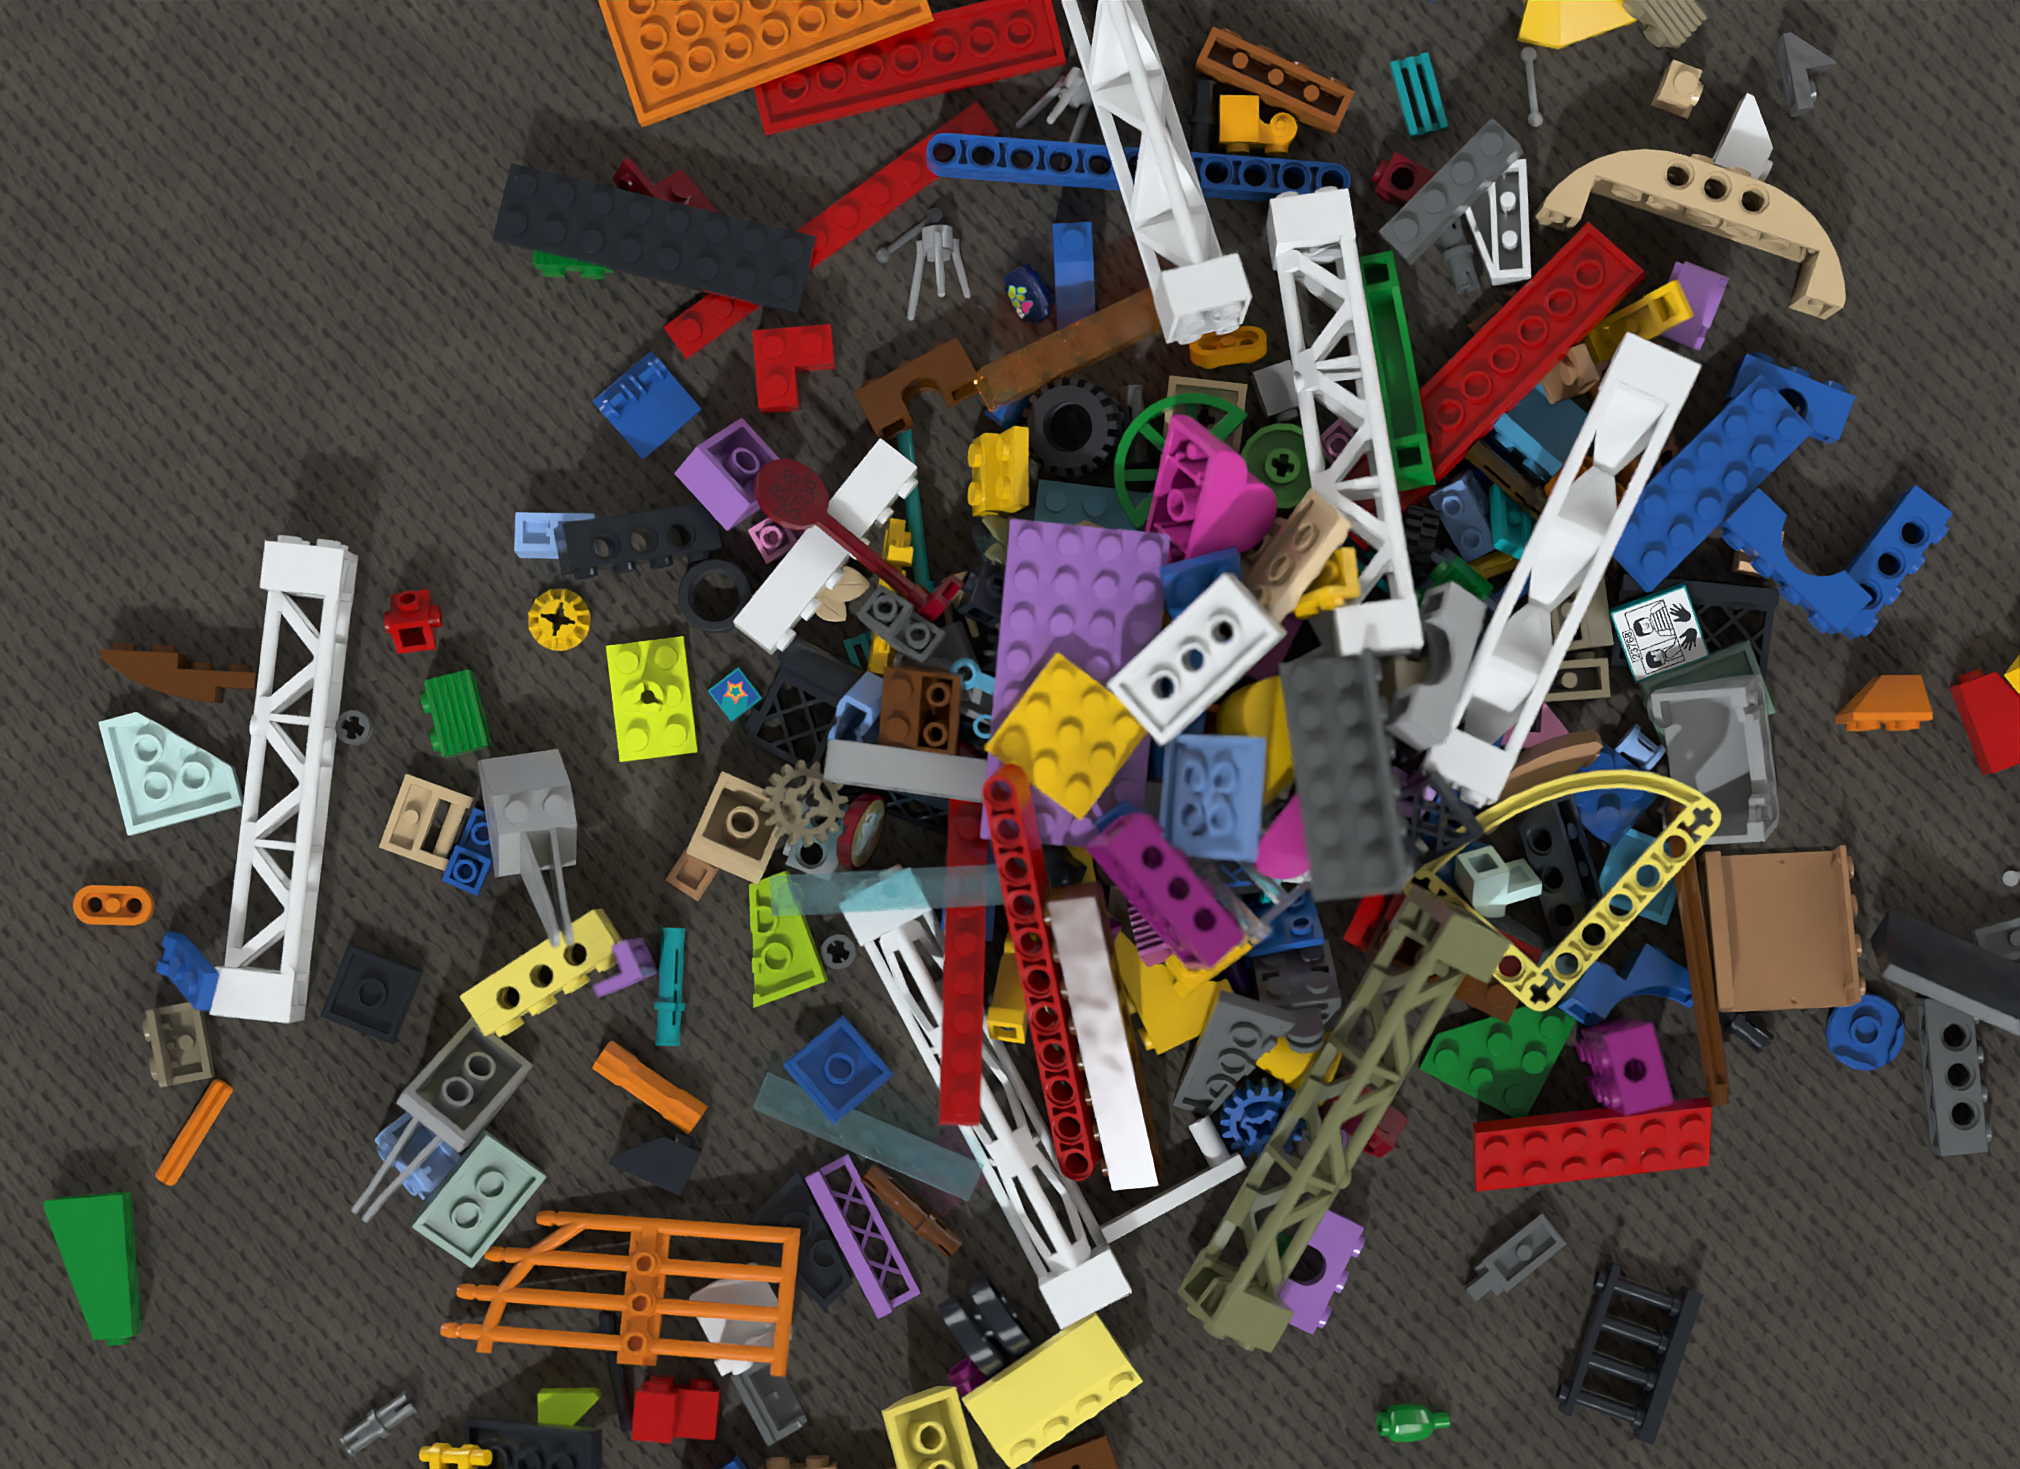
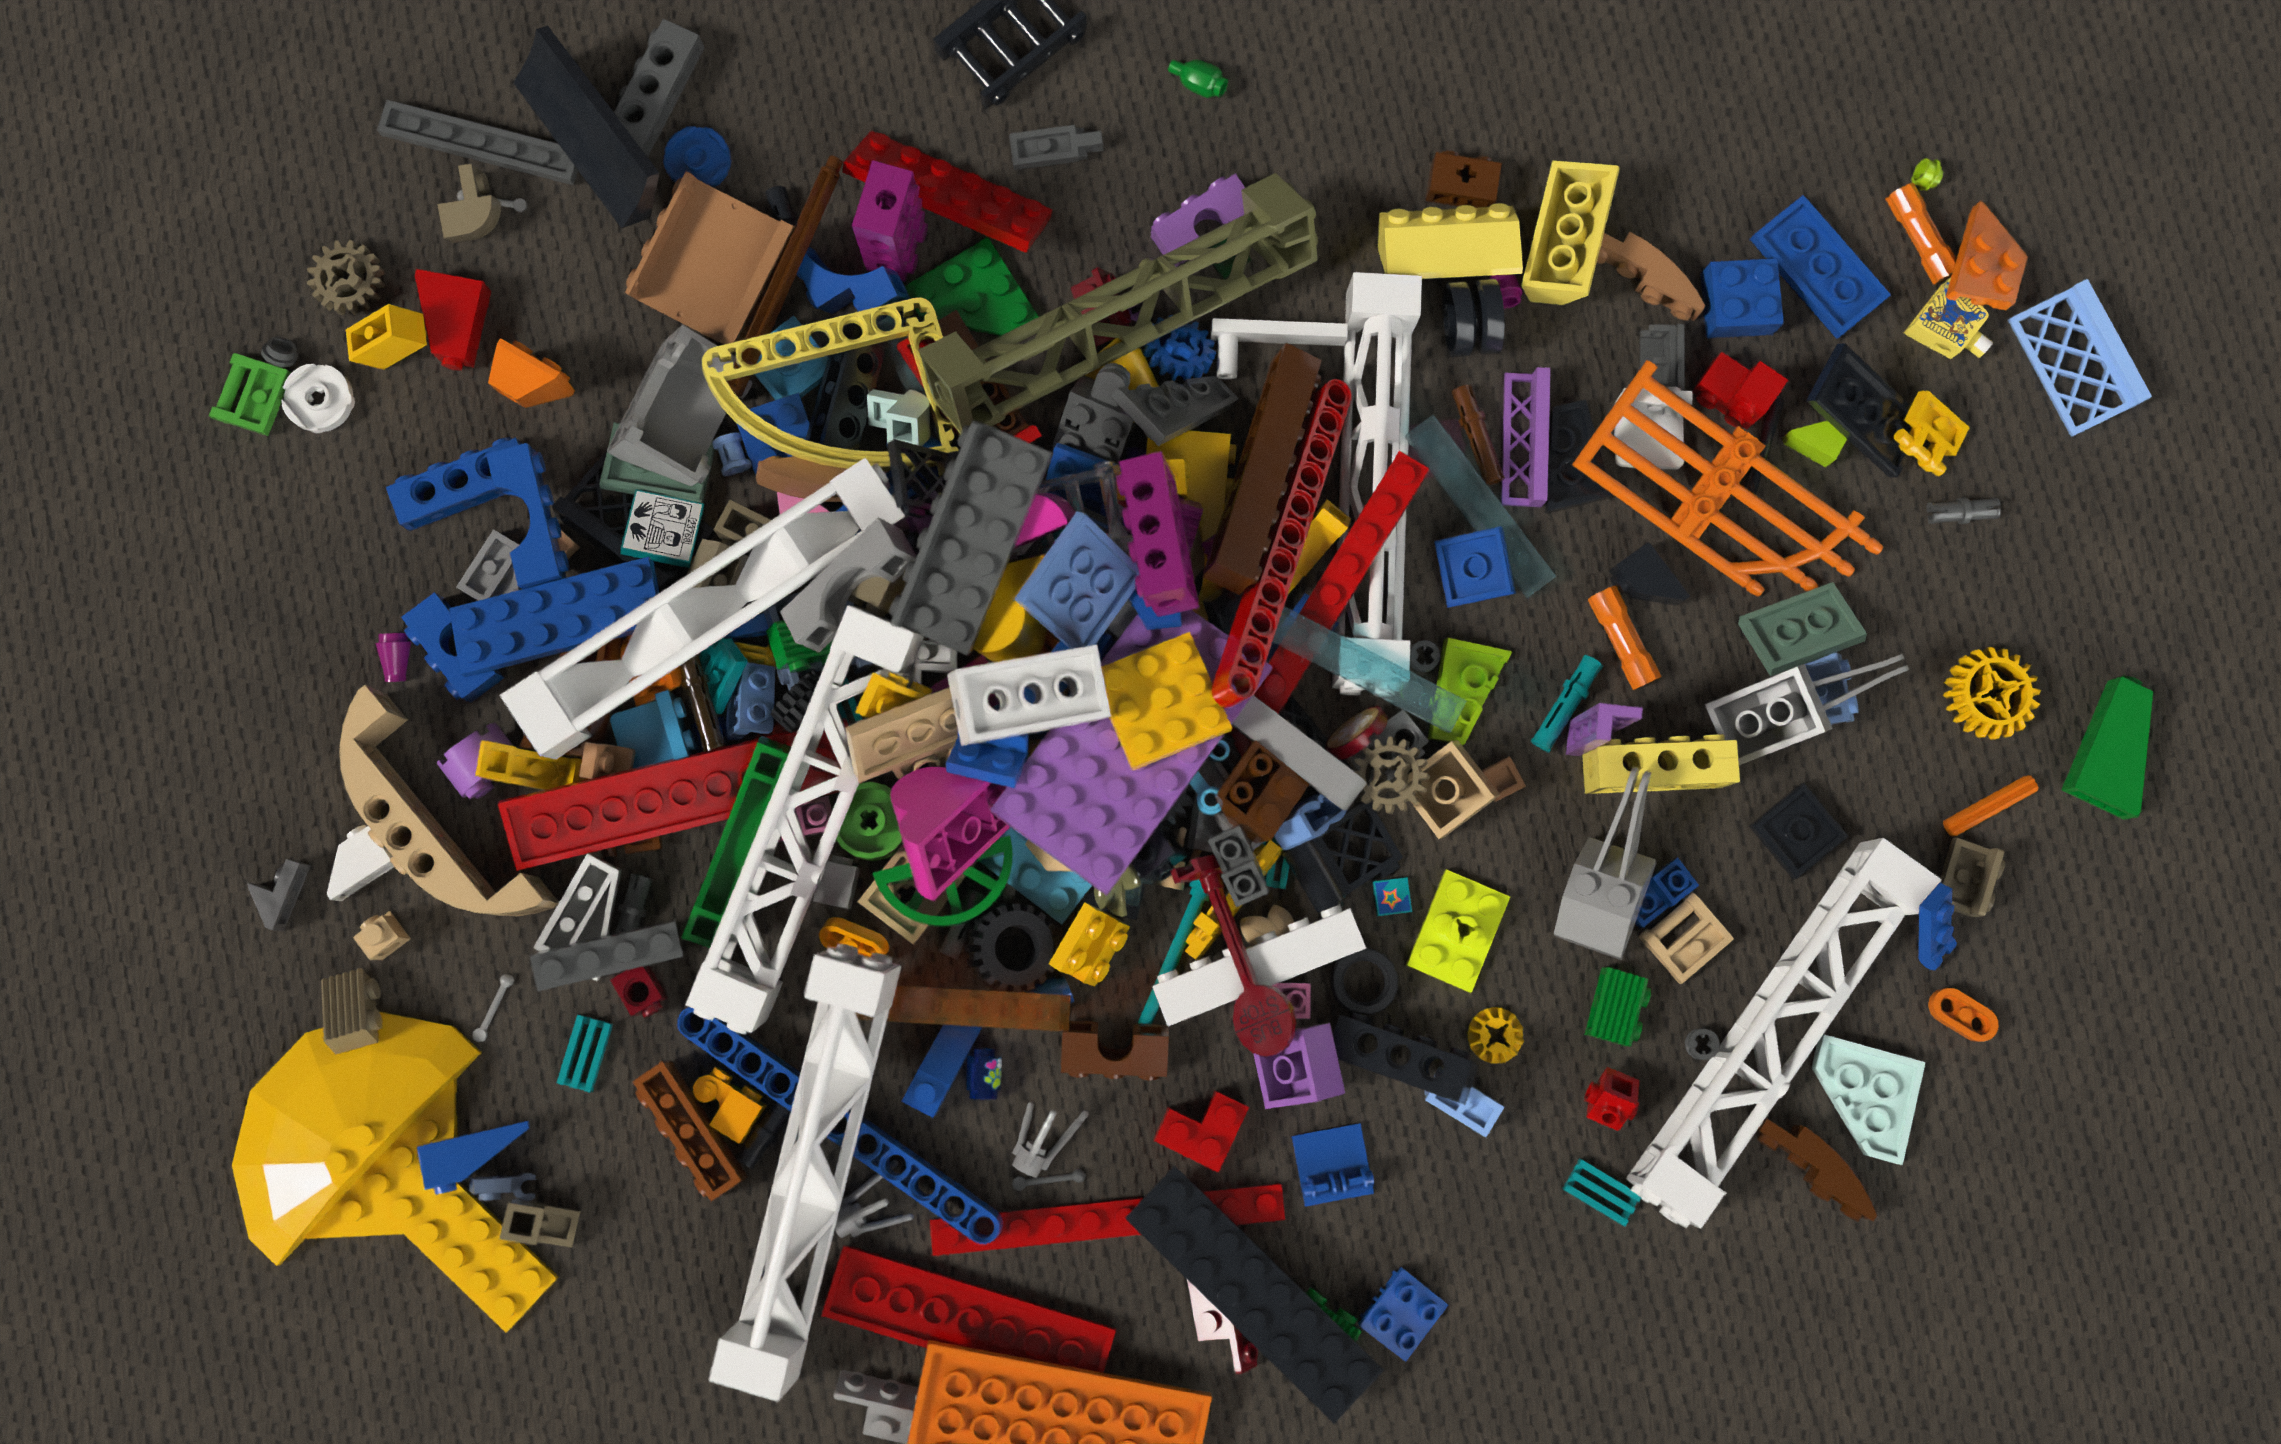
camera: 155 degrees left, 5 degrees down
(237, 1235) = (1986, 680): none -> yellow gear
(407, 529) = (1628, 1208): none -> teal tile
(502, 304) = (1402, 1314): none -> blue hinge
(1799, 492) = (491, 569): none -> light grey wing
(1841, 360) = (394, 655): none -> magenta cone

